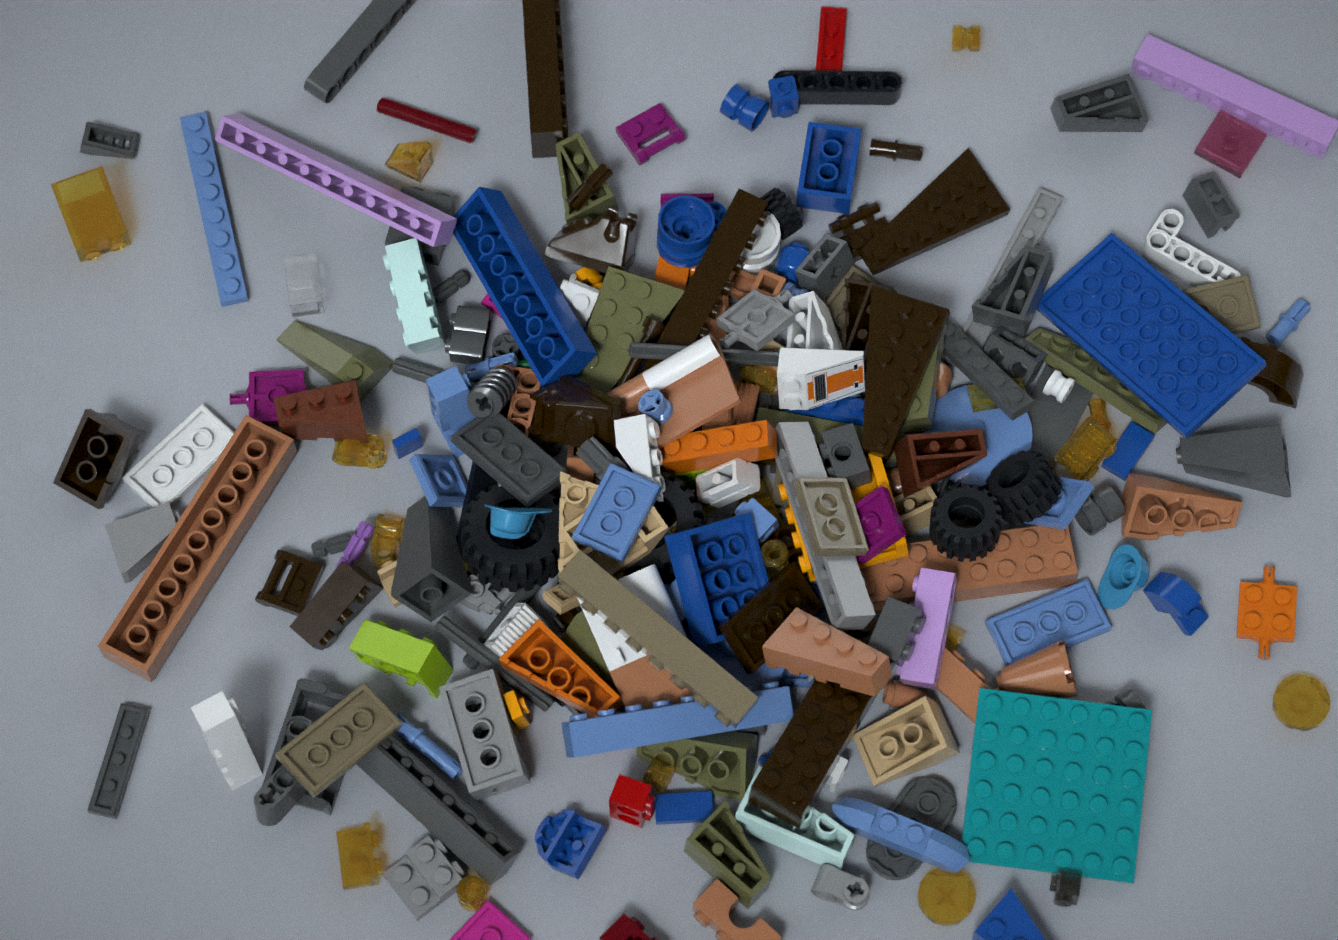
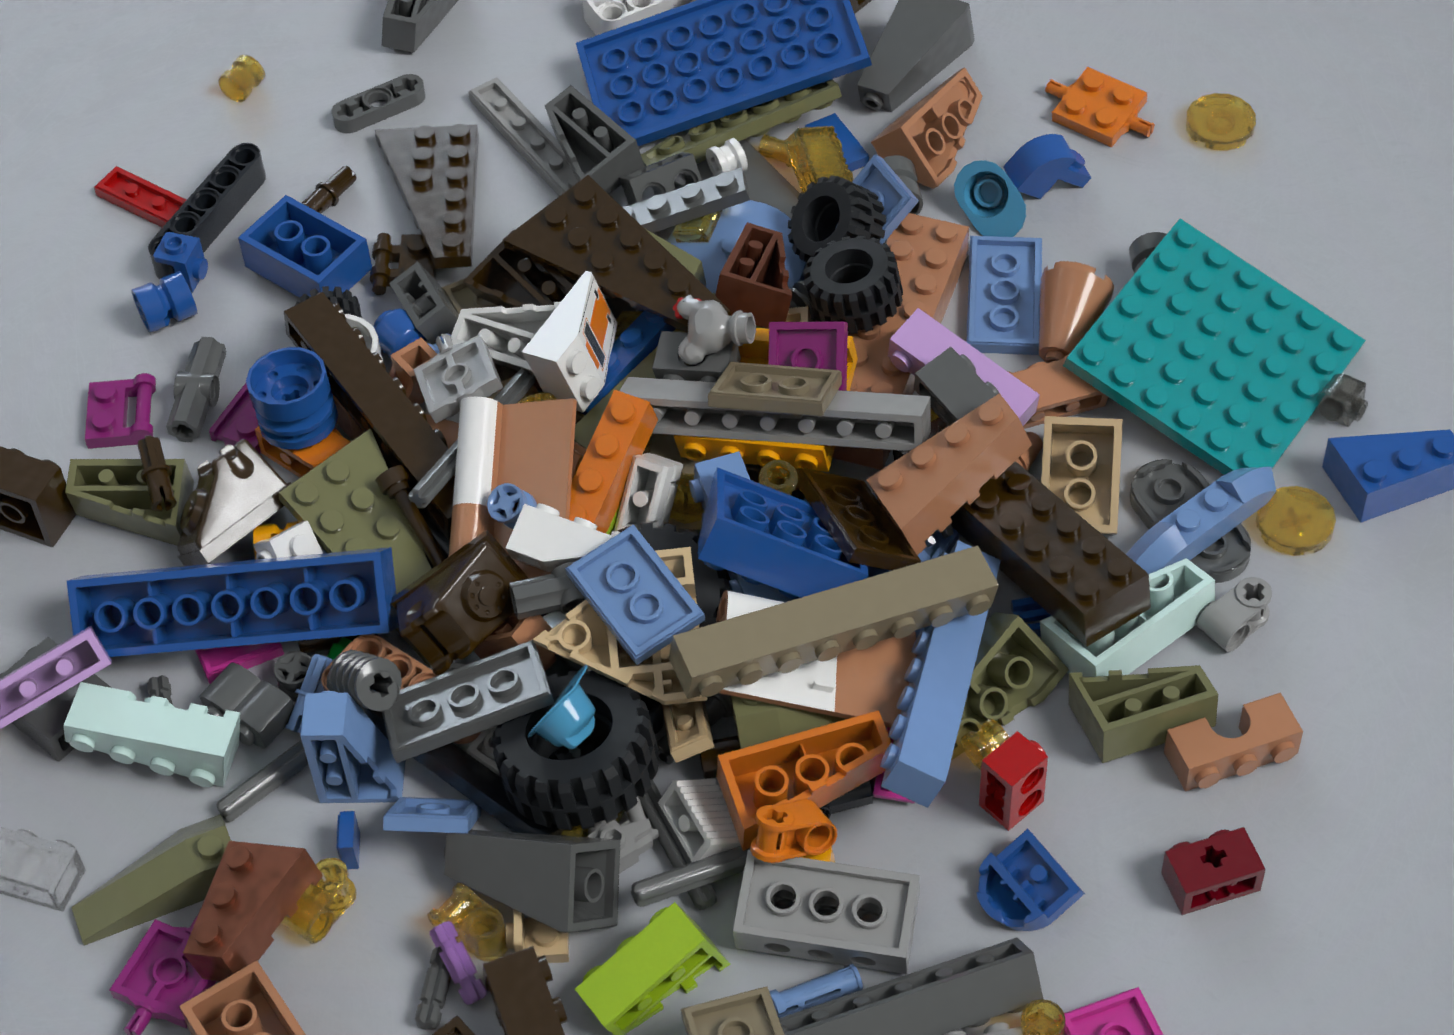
camera: 60 degrees left, 15 degrees down
(514, 688) = (794, 829): none -> orange piece
(683, 807) = (1050, 727): blue tile -> none
(688, 167) = (196, 389): none -> dark grey piece
(860, 452) = (711, 328): none -> light grey animal
(999, 146) = (361, 119): none -> dark grey beam

